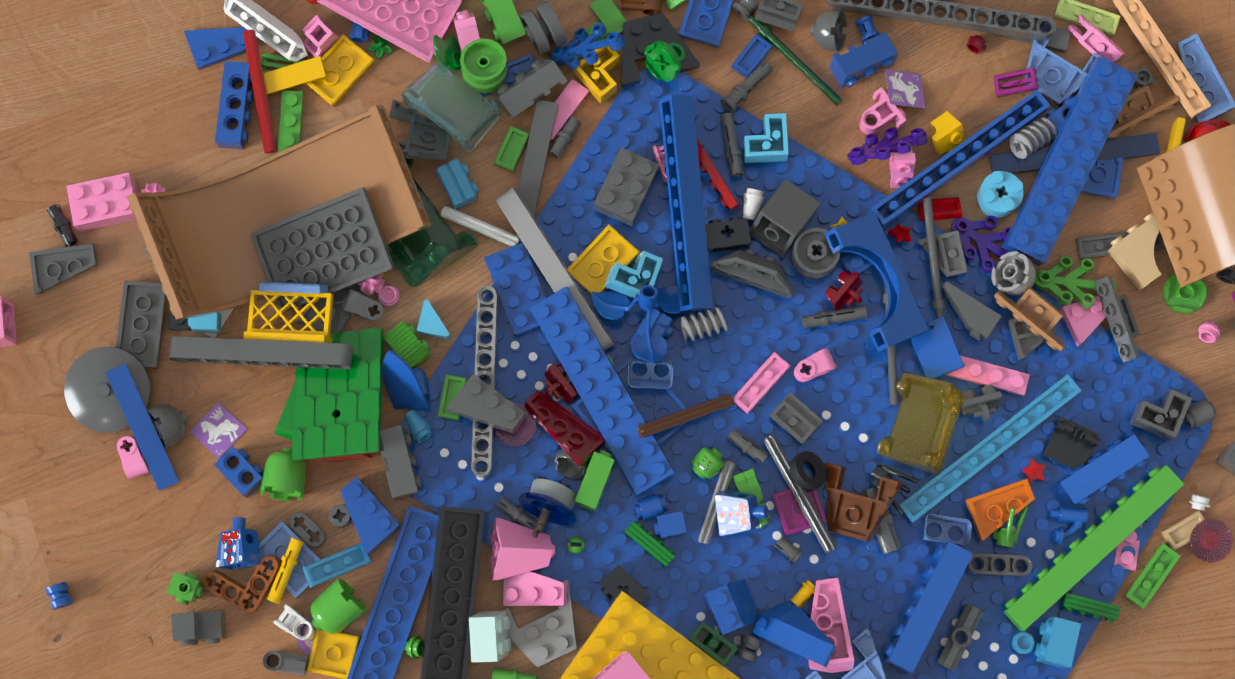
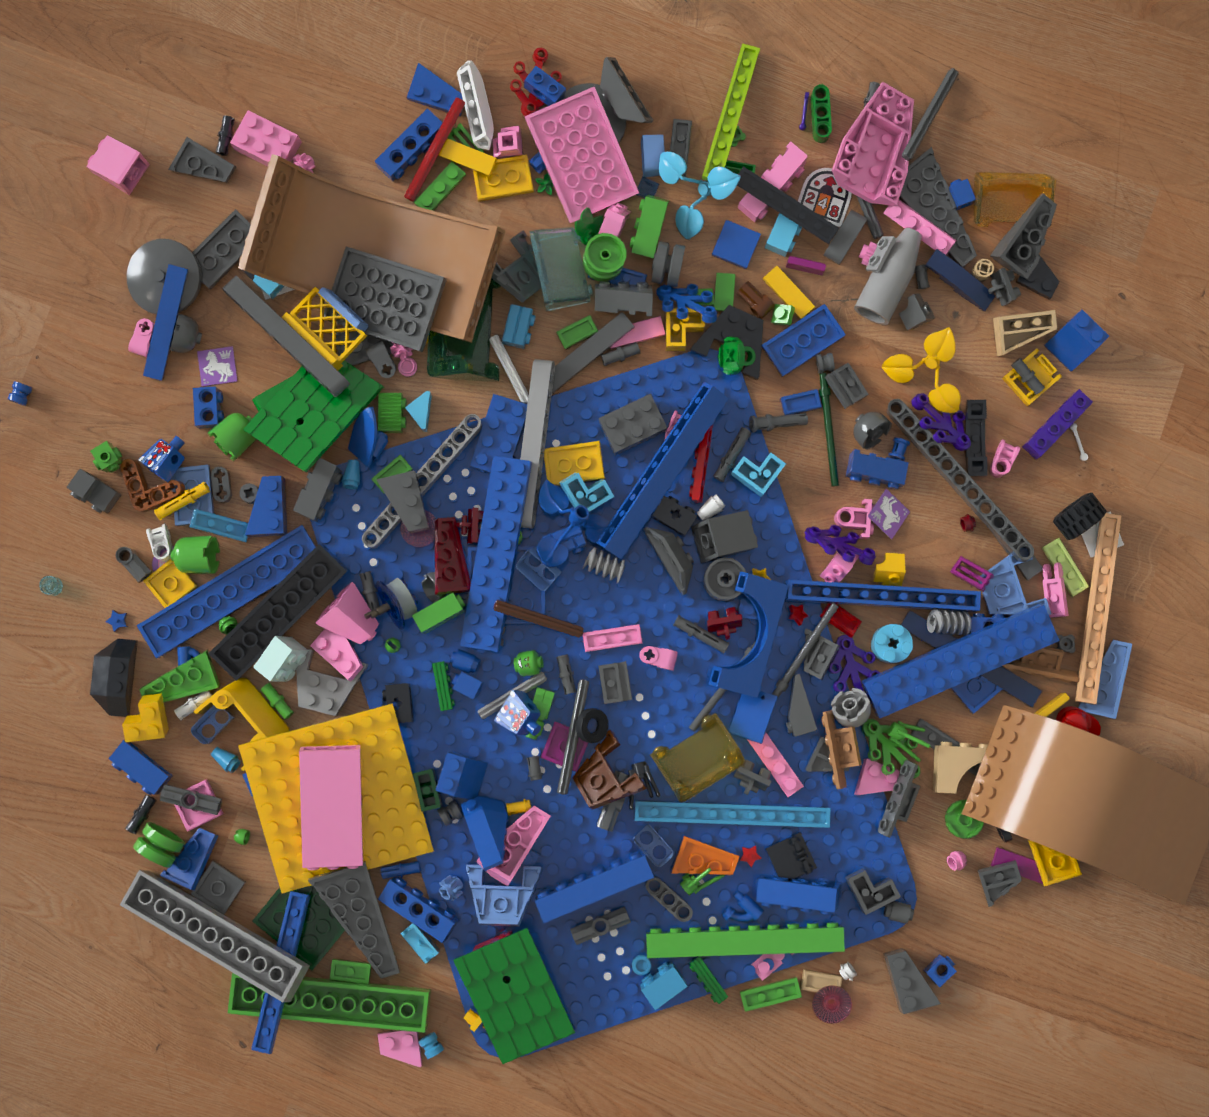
camera: 35 degrees right, 5 degrees up
(1068, 263) = (898, 732): none -> bright green plant

